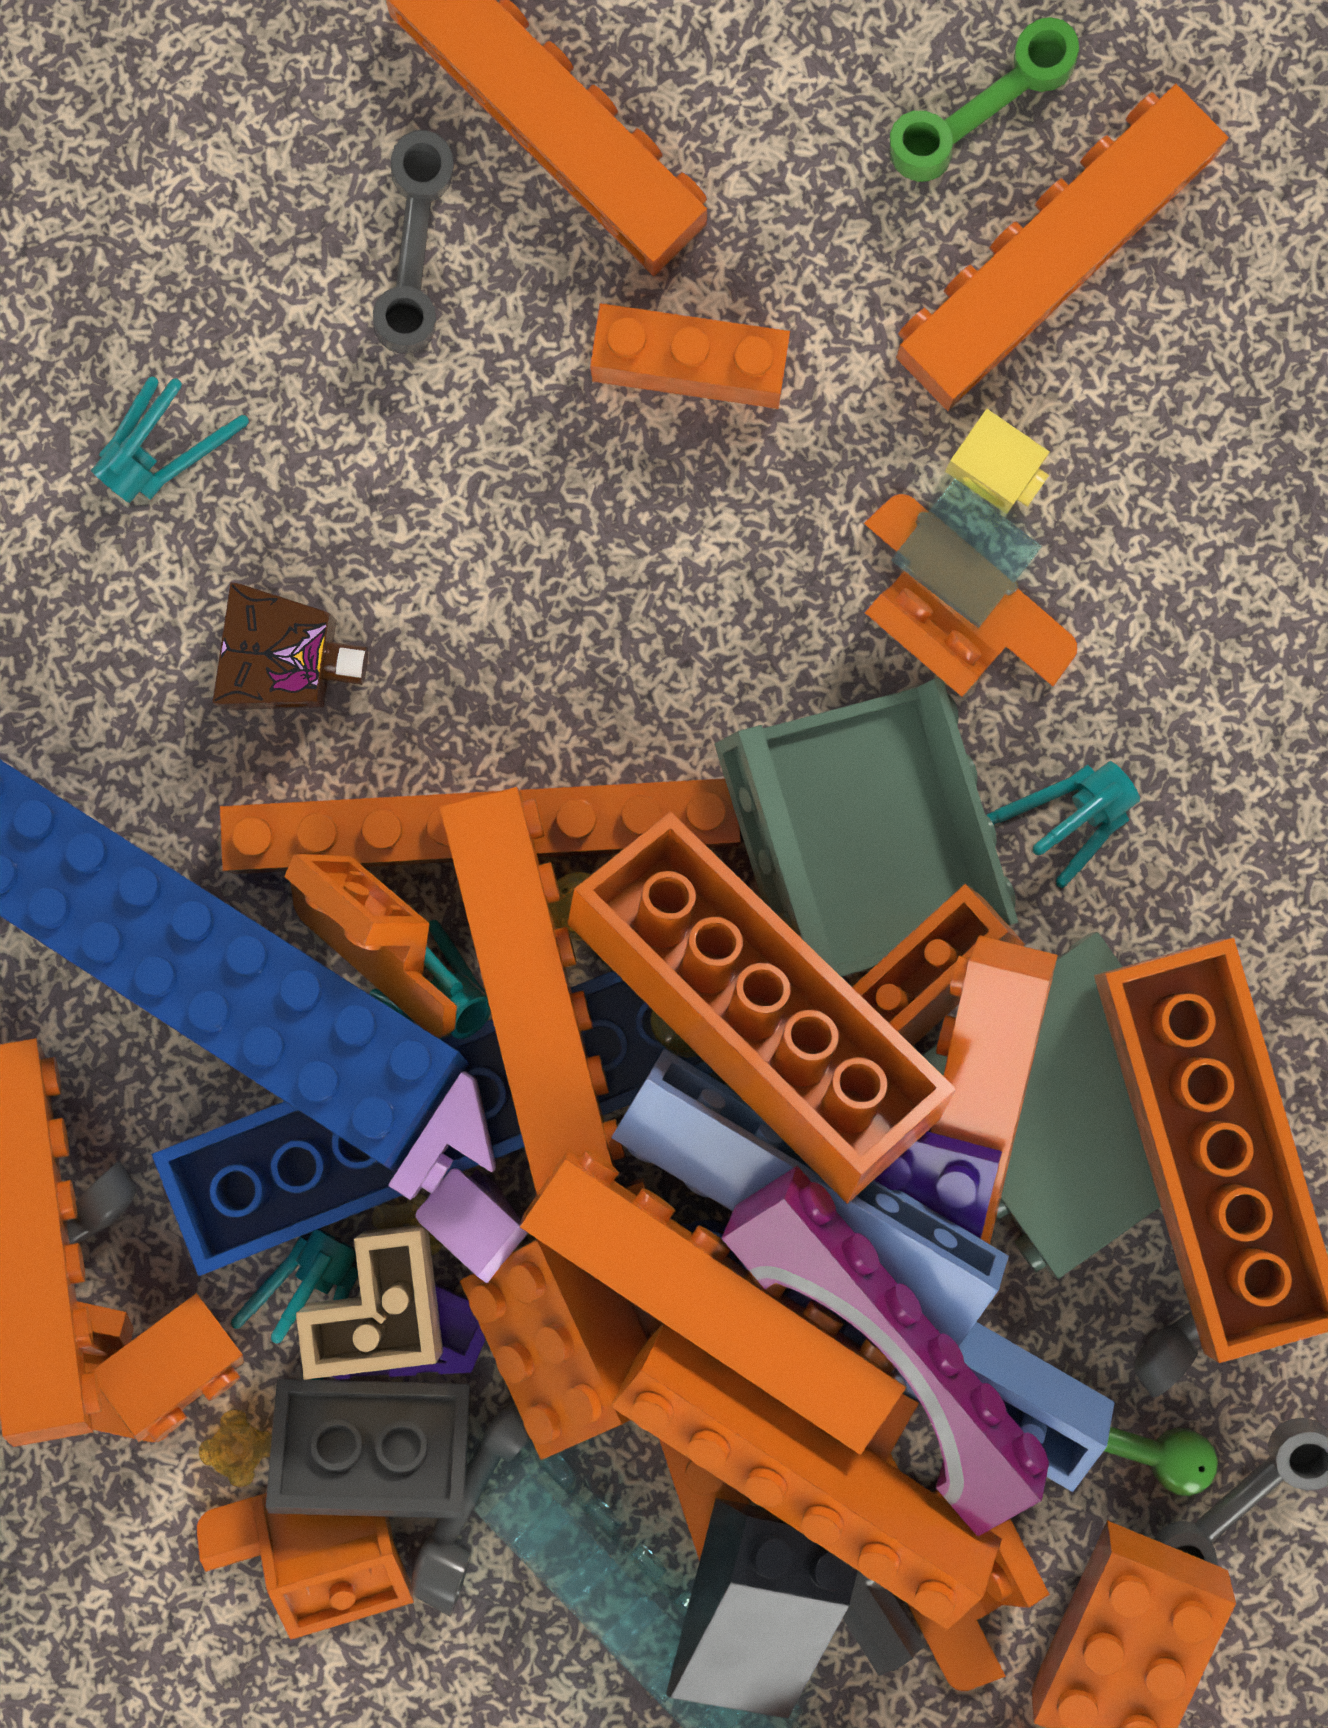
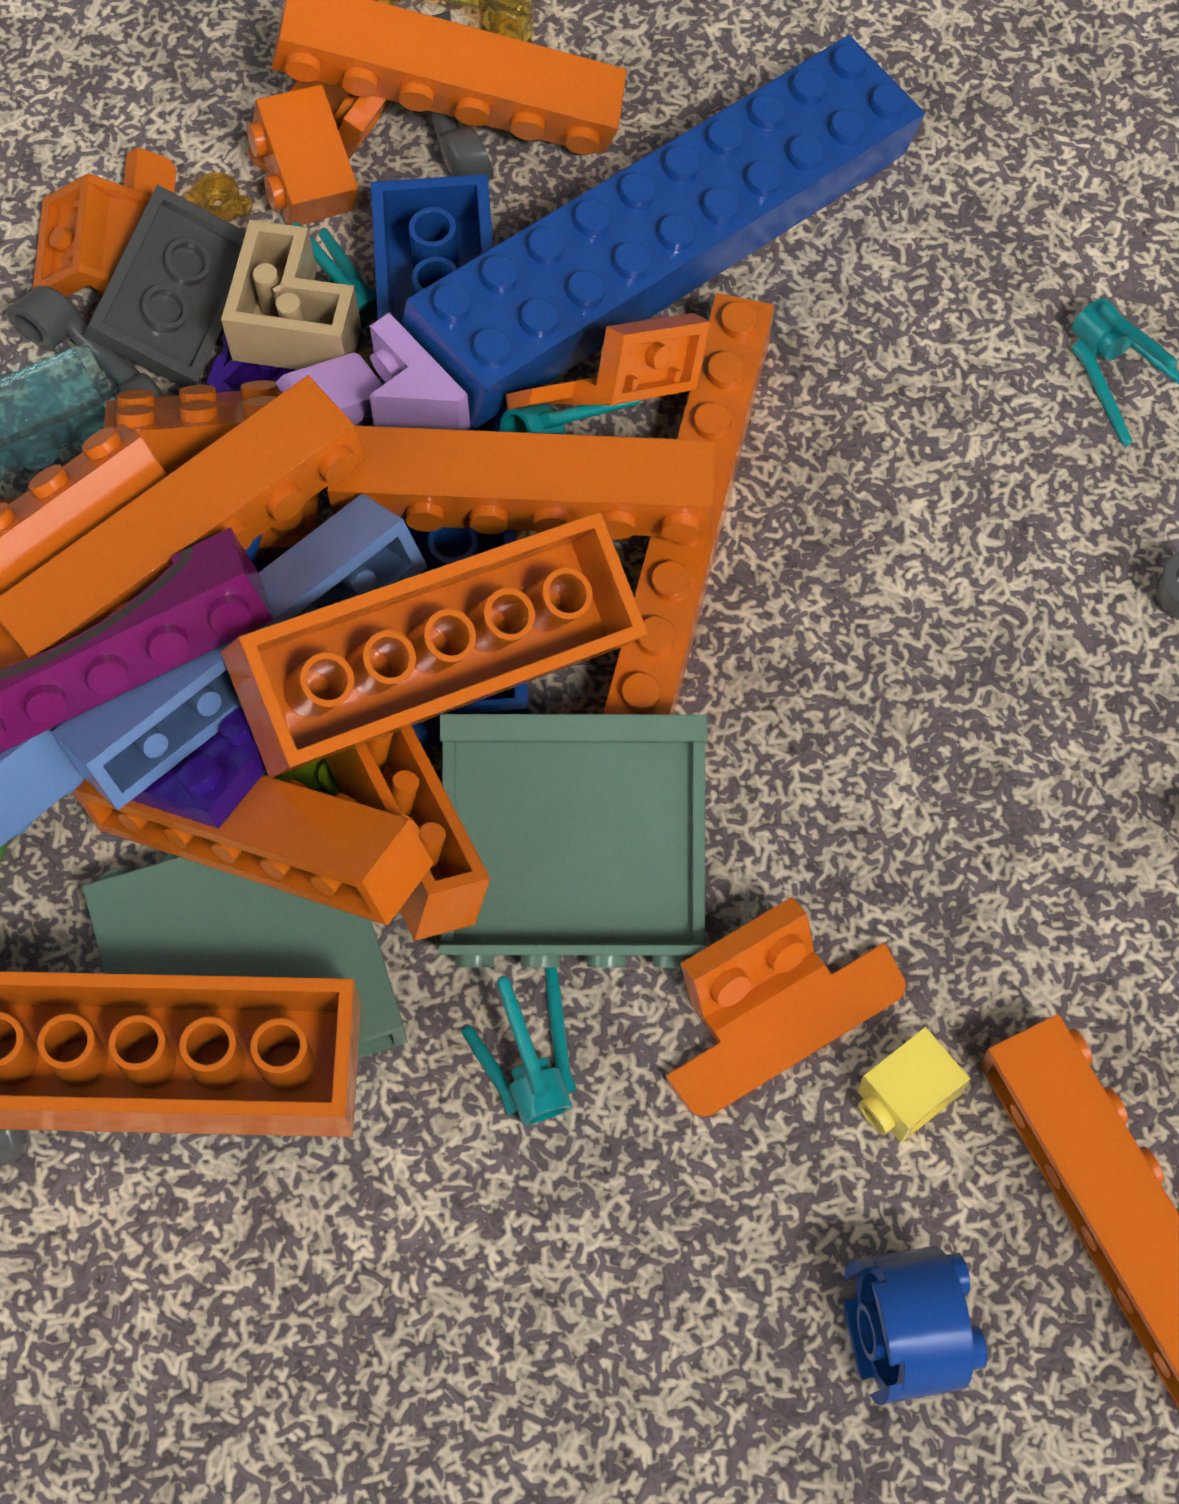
camera: 100 degrees right, 20 degrees down
(280, 654) = (901, 402): reddish brown torso -> none
(689, 356) = (1094, 822): orange brick -> none
(966, 553) = (826, 1032): clear light blue piece -> none
(1220, 405) = (913, 1324): none -> blue brick

